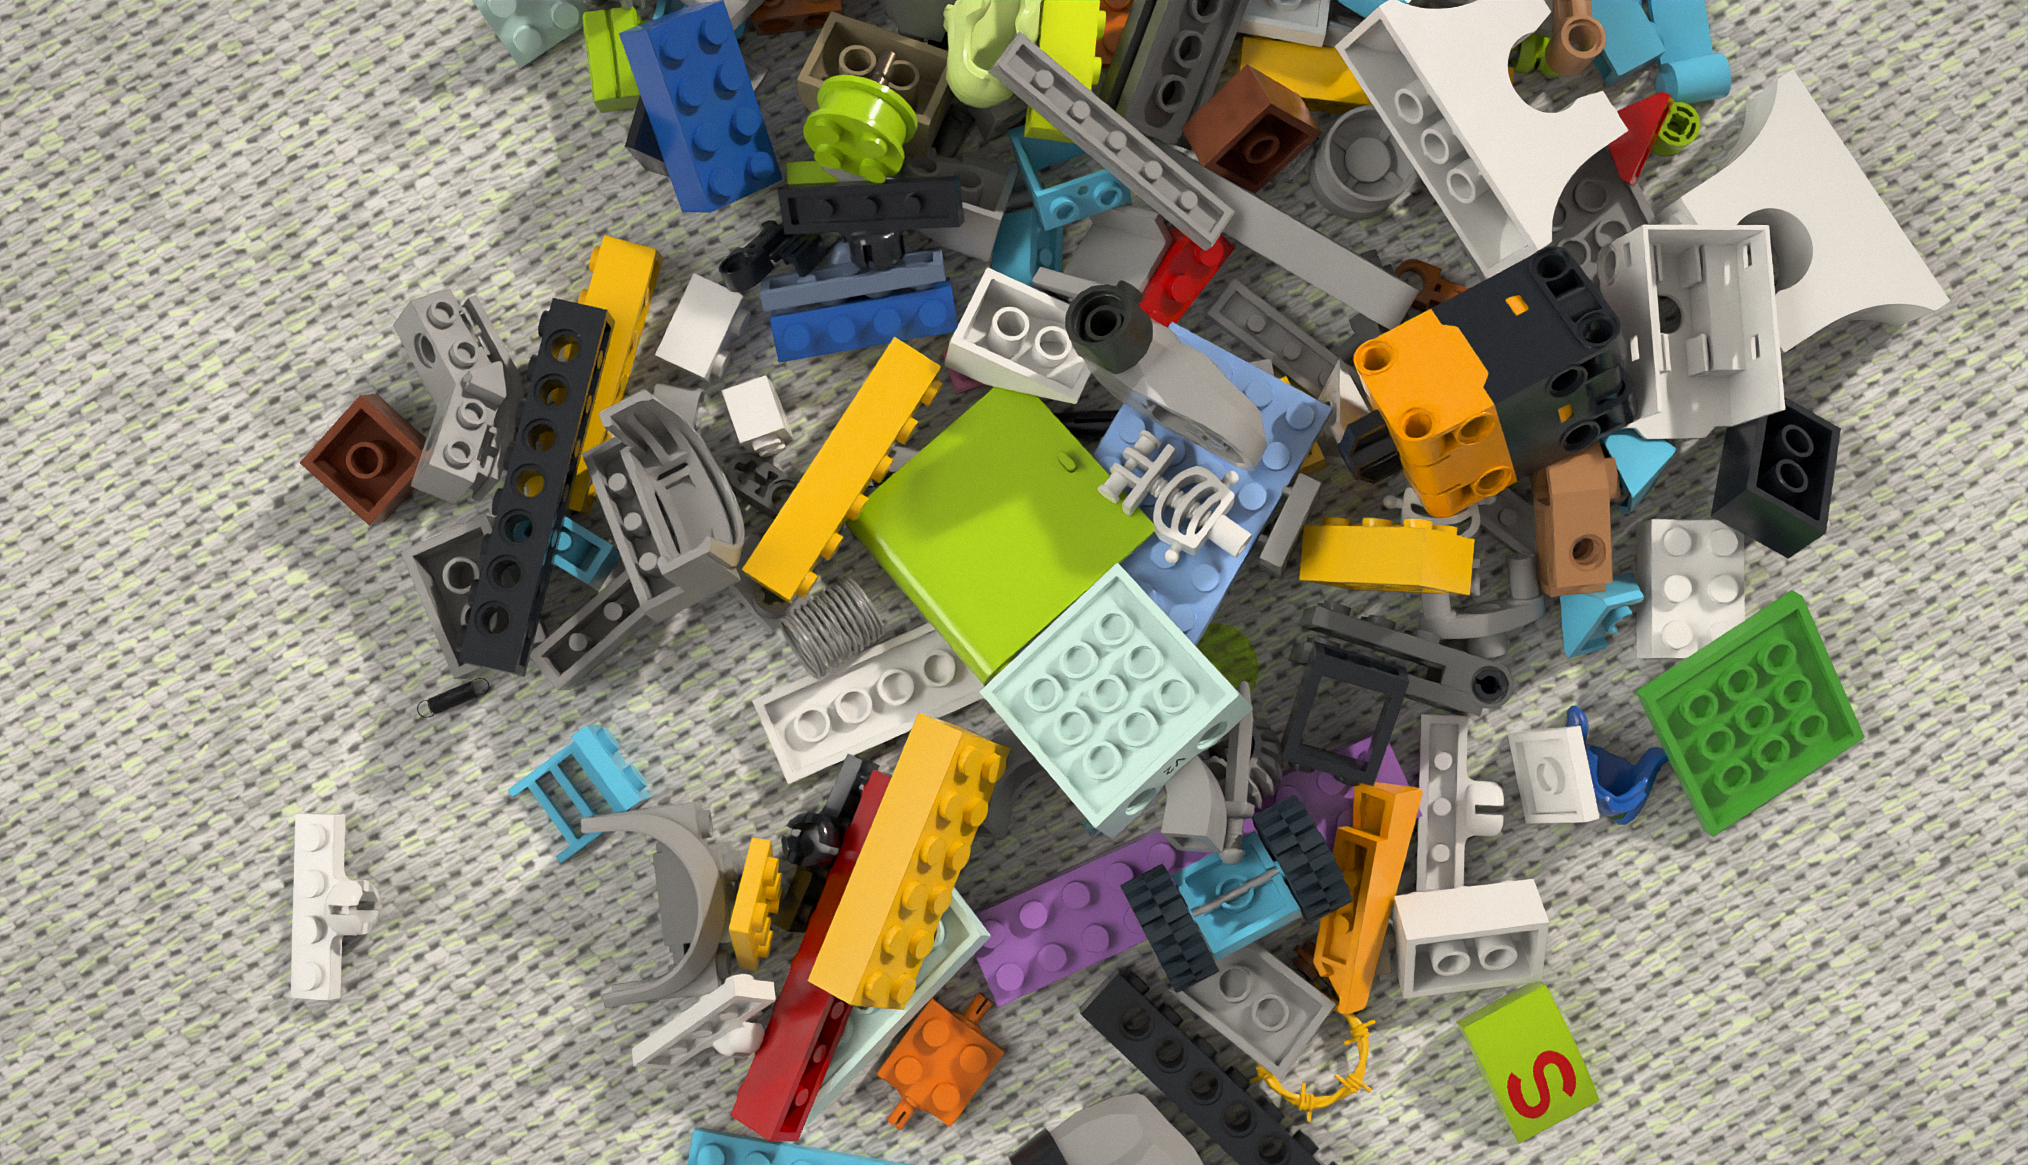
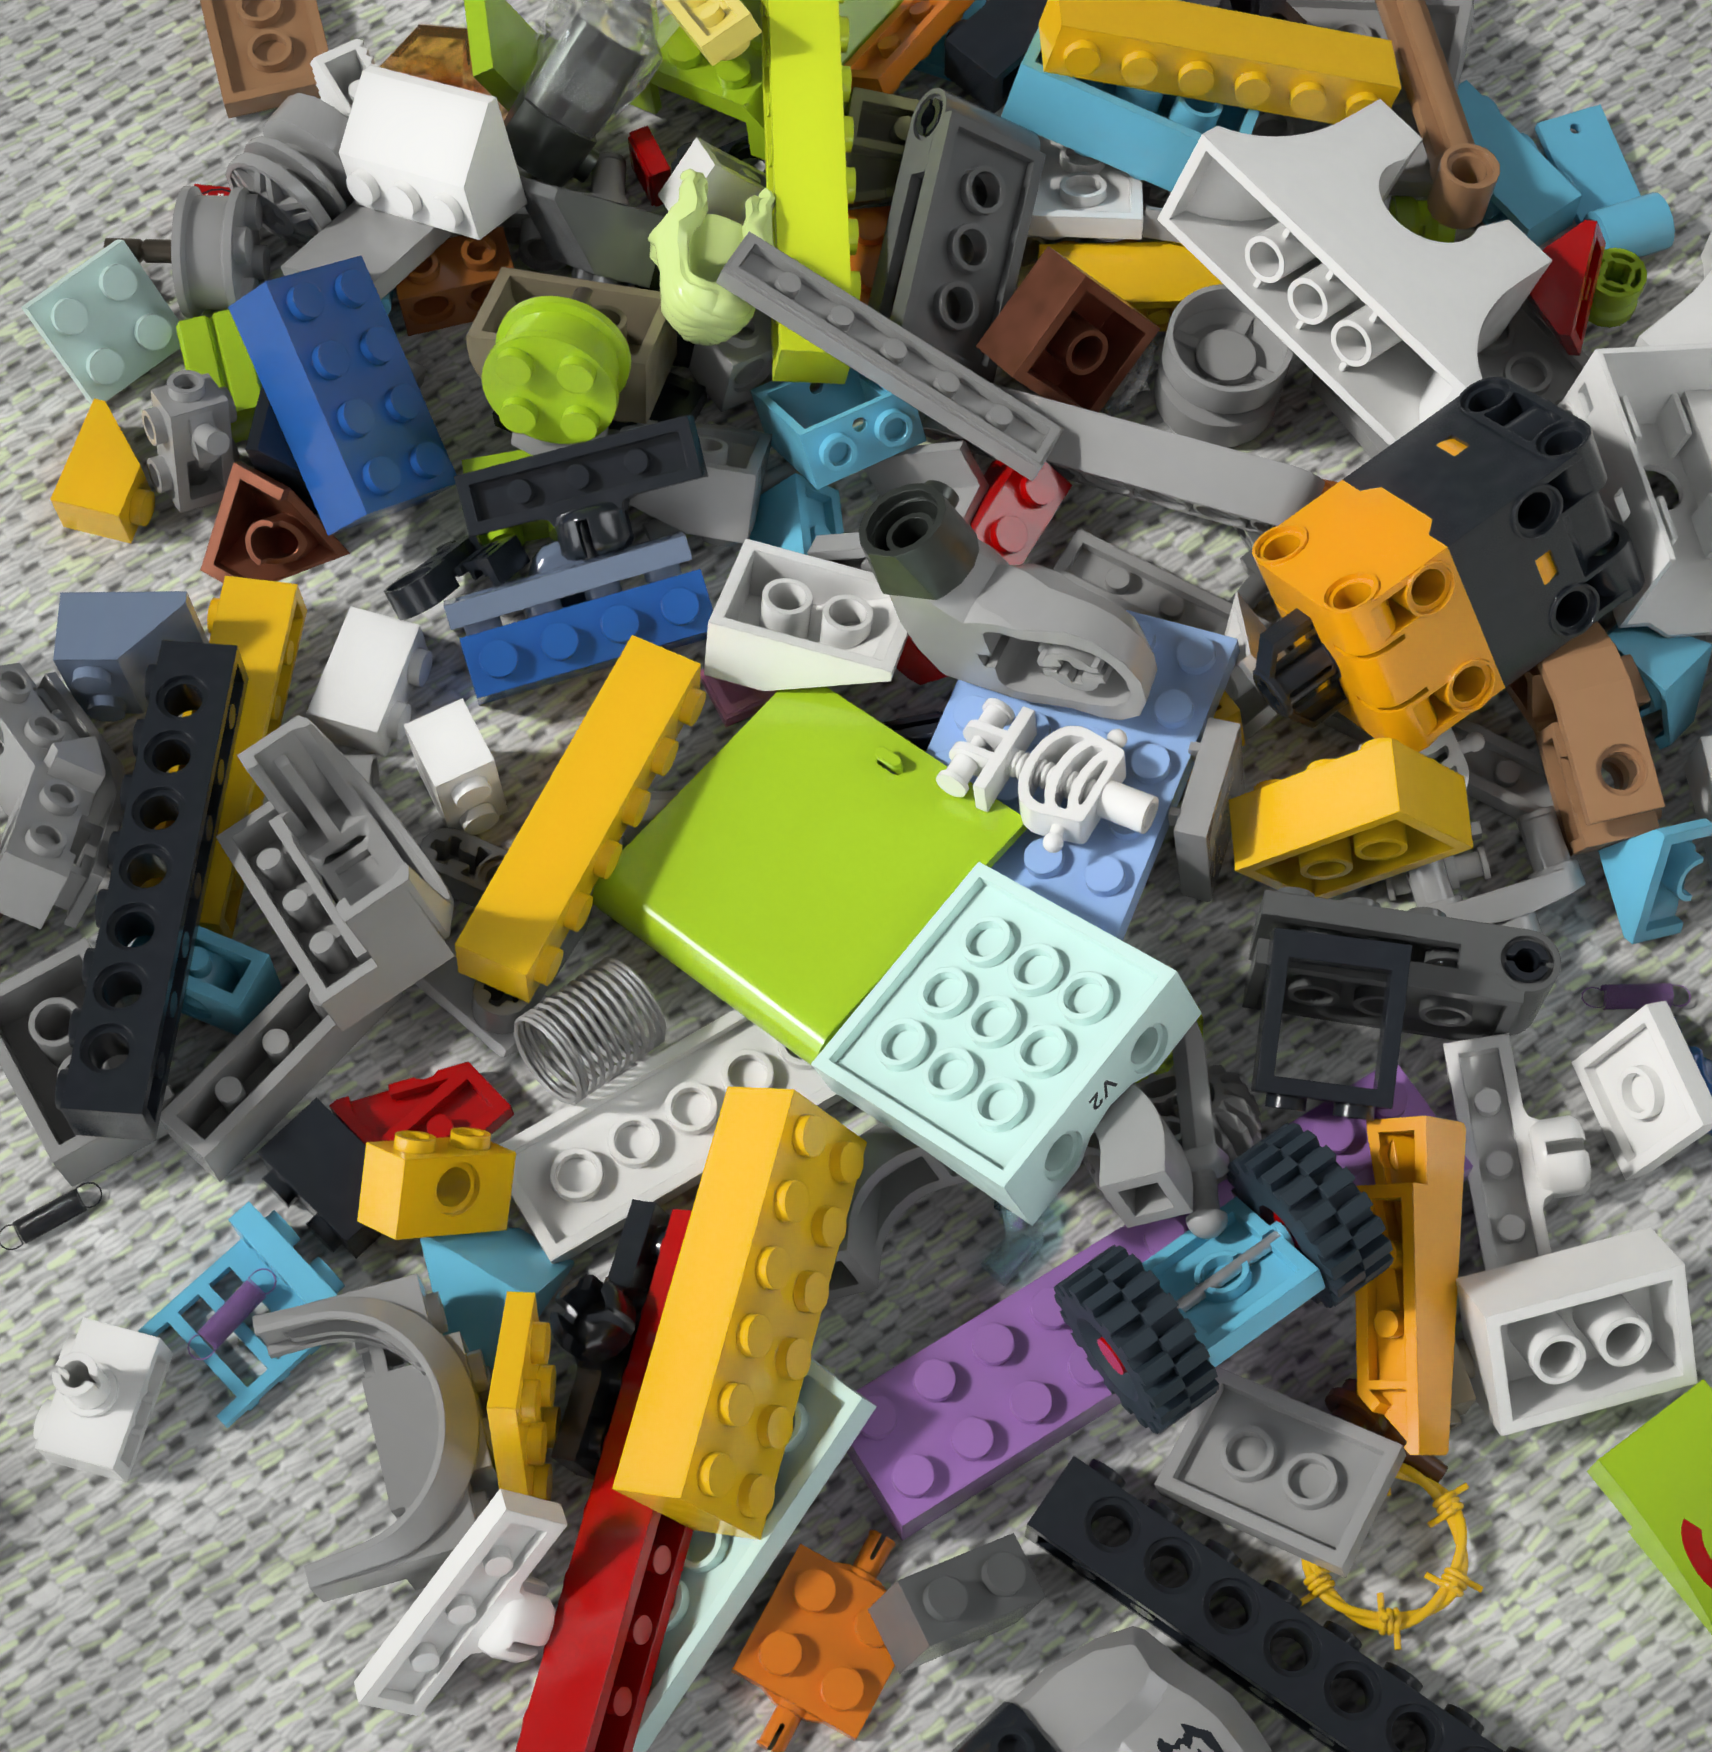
camera: 10 degrees left, 20 degrees down
(480, 836) = (102, 1399): none -> white brick
(521, 285) = (112, 639): none -> sand blue slope
(522, 134) = (103, 481): none -> yellow slope
(569, 791) = (232, 1313): none -> medium lavender piece
(585, 115) = (192, 439): none -> light grey brick
(634, 198) = (265, 531): none -> copper slope
(646, 704) = (322, 1168): none -> black brick
(712, 670) = (430, 1105): none -> red wing
(714, 730) = (436, 1184): none -> yellow brick
(745, 792) = (477, 1272): none -> medium azure slope
(1026, 1058) = (956, 1602): none -> dark grey brick
(1564, 693) = (1636, 995): none -> medium lavender piece

